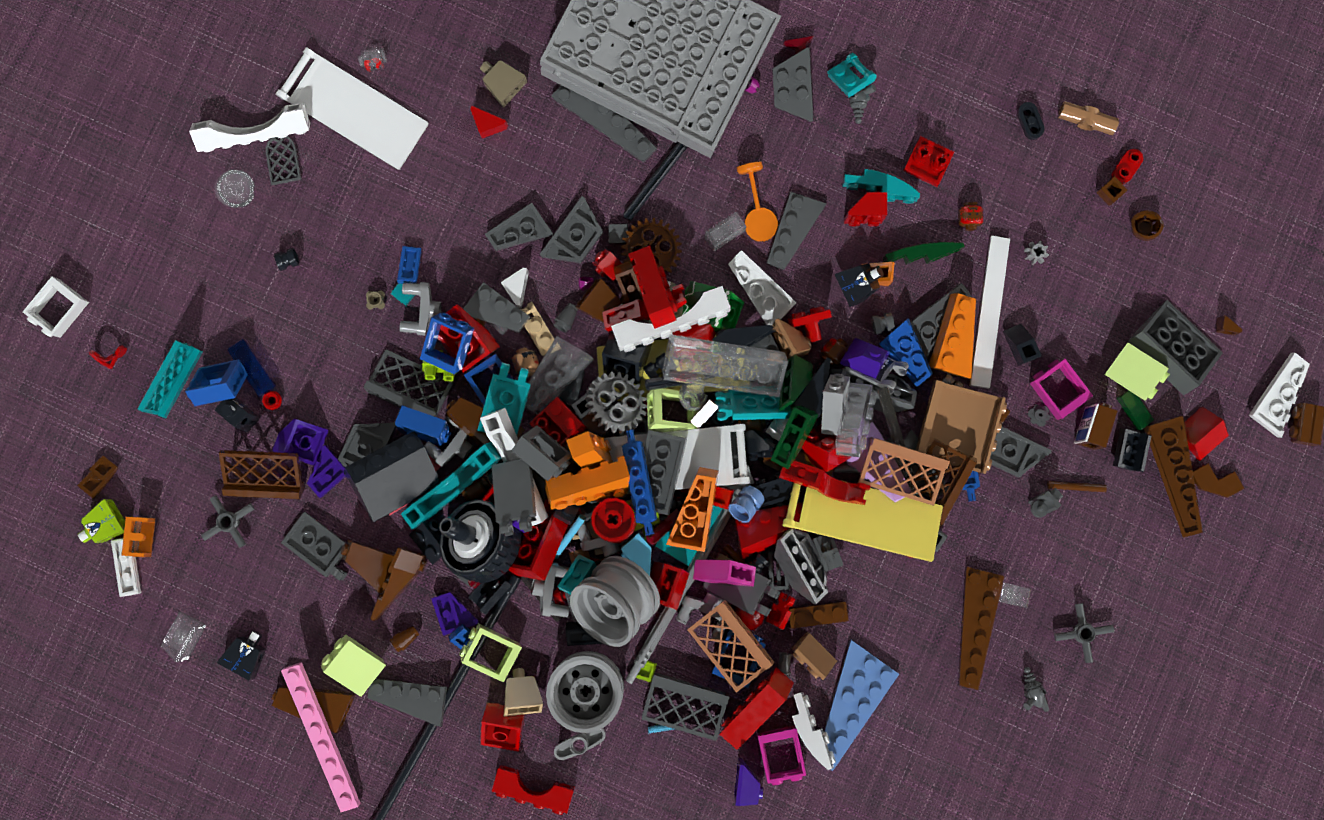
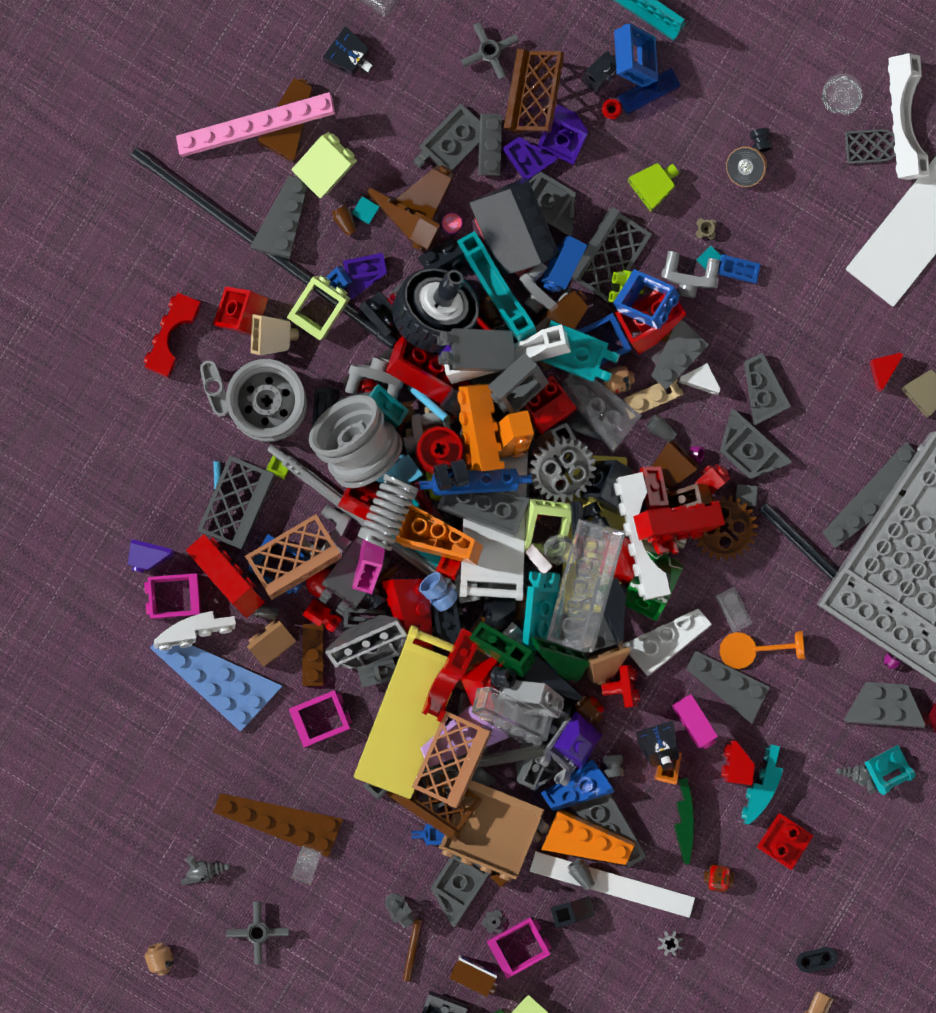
camera: 90 degrees right, 0 degrees up
(312, 269) = (746, 166): none -> black tile
(317, 510) = (490, 144): none -> dark grey plate
(338, 353) = (653, 184): none -> lime torso
(393, 619) = (365, 210): none -> teal tile
(396, 536) = (451, 223): none -> tile
(635, 498) = (458, 473): none -> black wheel
(665, 548) = (392, 512): none -> light grey piece
(821, 432) = (503, 677): none -> black wheel
(833, 253) = (695, 722): none -> dark pink window
(886, 617) = (300, 726): none -> dark pink window
(984, 341) = (580, 872): none -> dark grey cone
(1122, 722) = (159, 958): none -> medium nougat head

